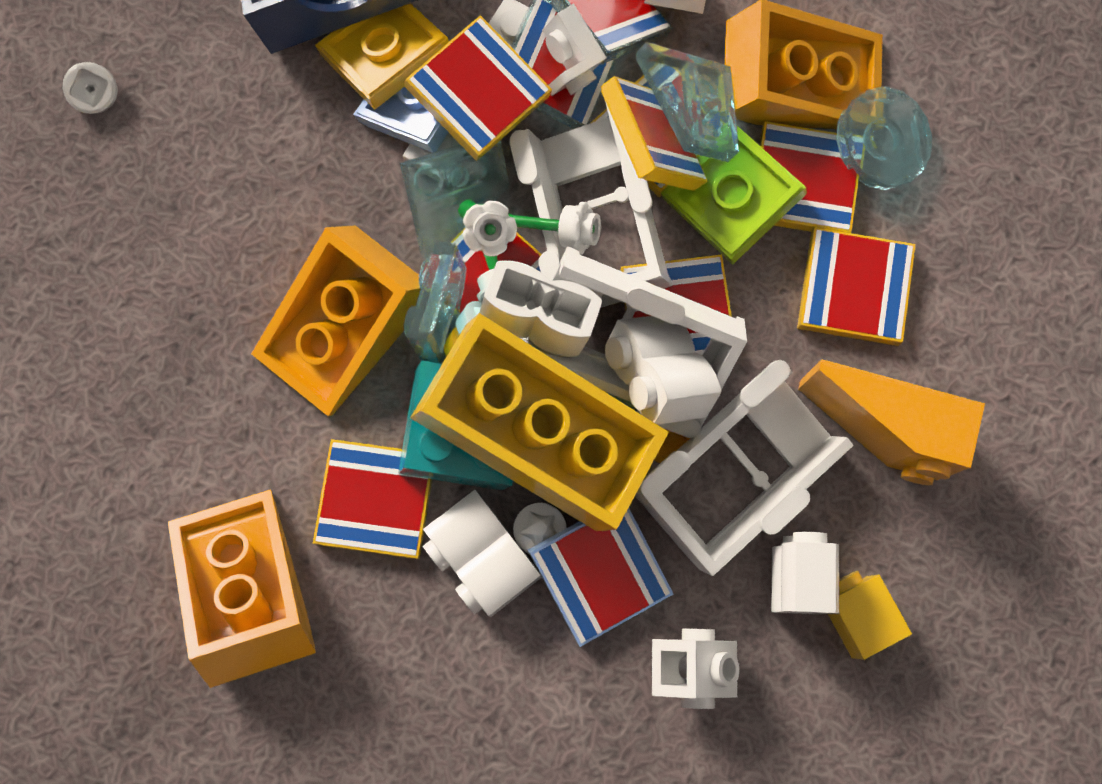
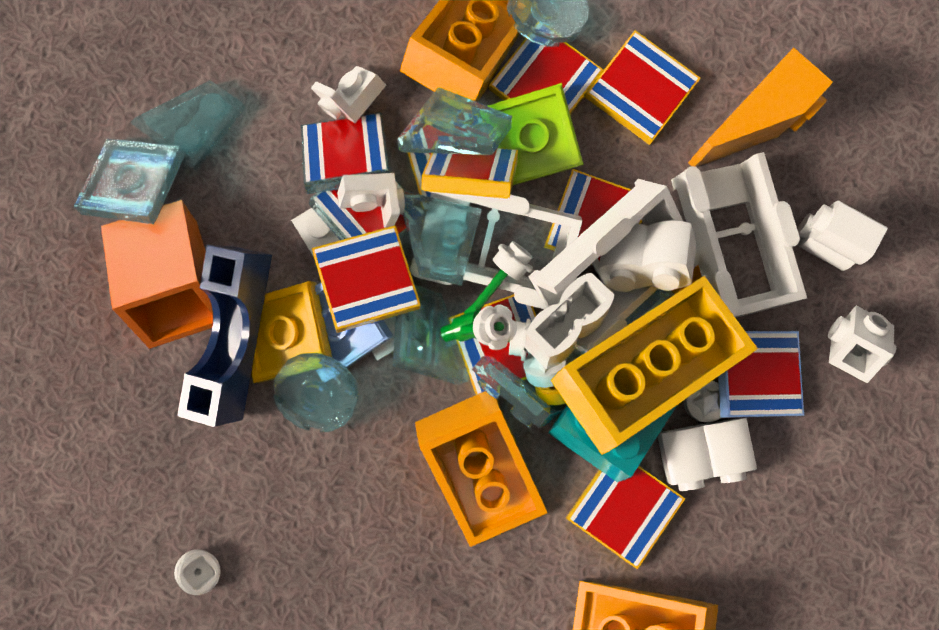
camera: 60 degrees left, 5 degrees up
(335, 106) = (315, 392): none -> clear light blue tile
(566, 143) = (440, 236): none -> clear light blue wing
(867, 616) = (885, 203): yellow brick -> none

